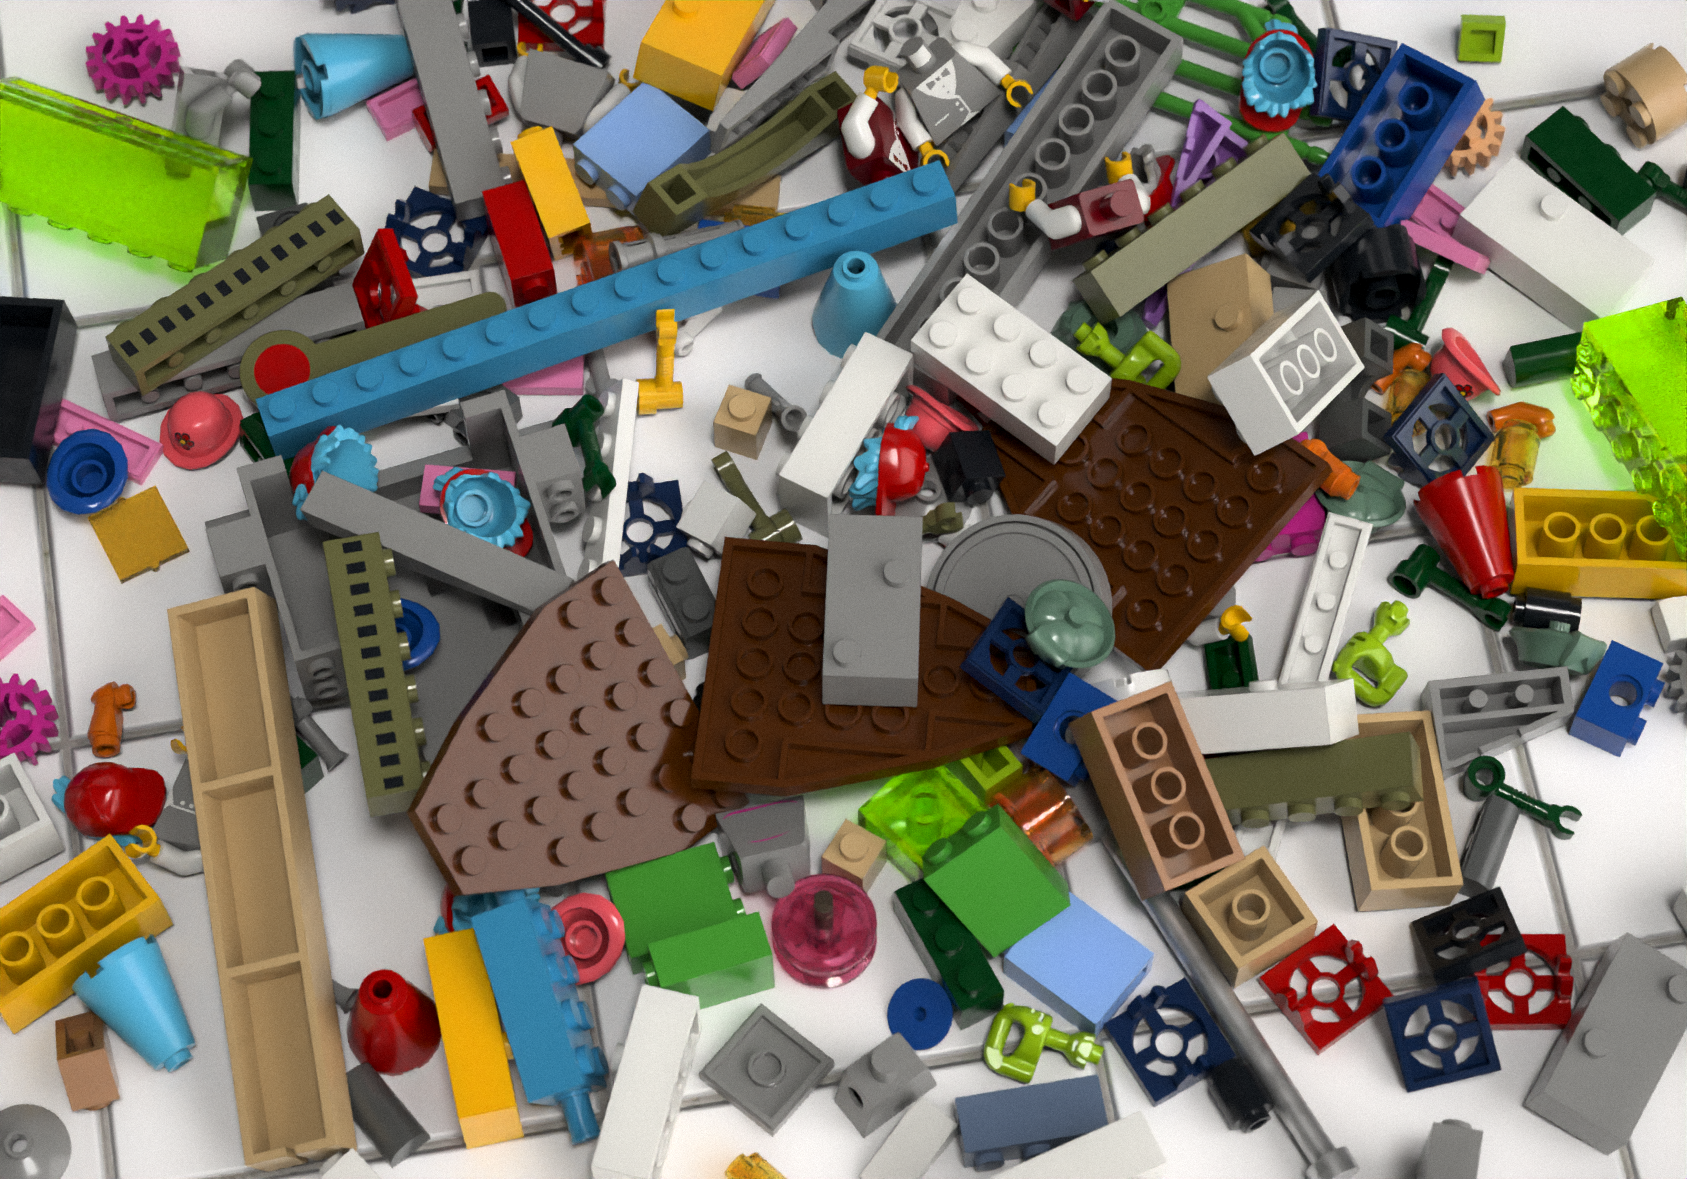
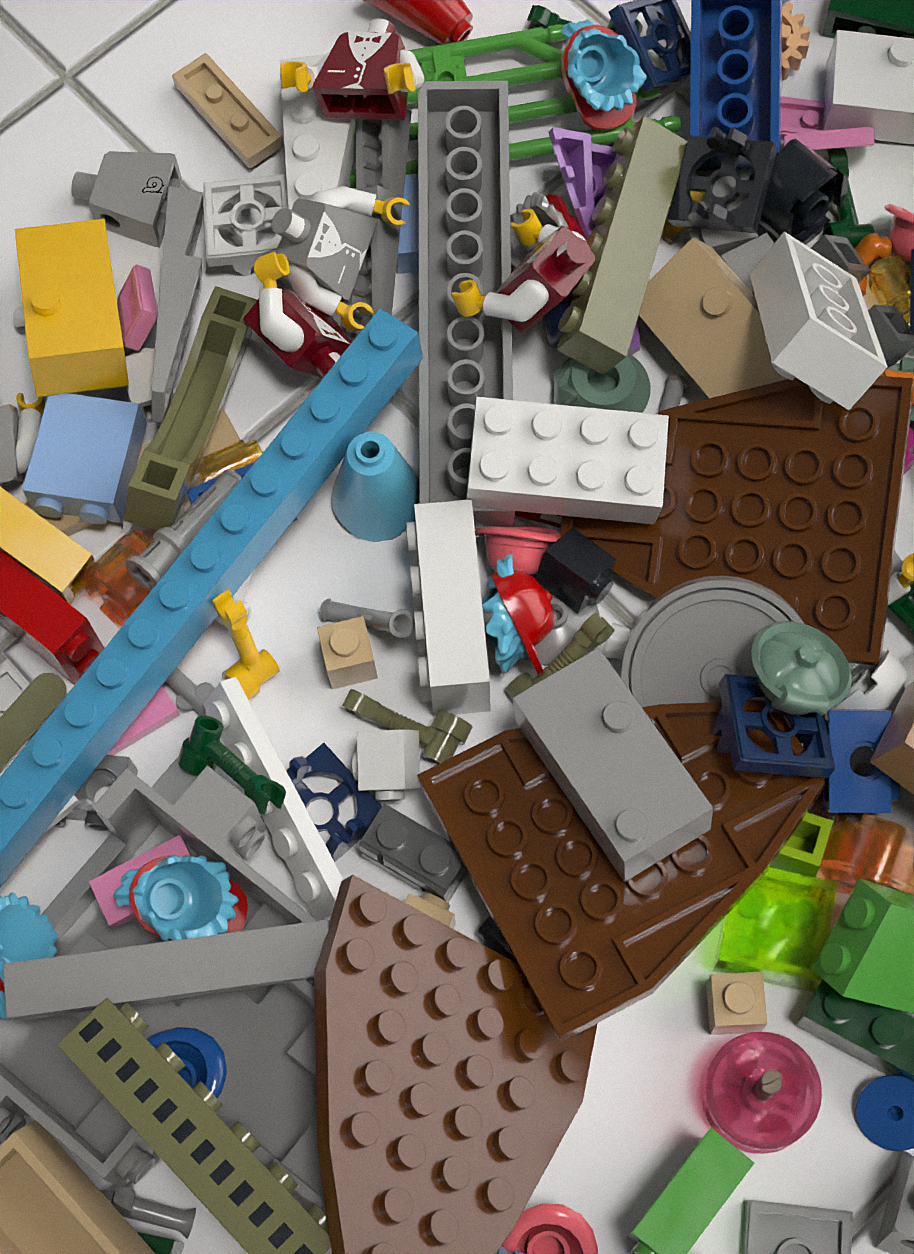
camera: 30 degrees left, 5 degrees up
(672, 897) = (611, 1157): bright green brick -> none
(767, 845) = (655, 1048): light grey torso -> none
(1129, 366) = (655, 387): lime piece -> none

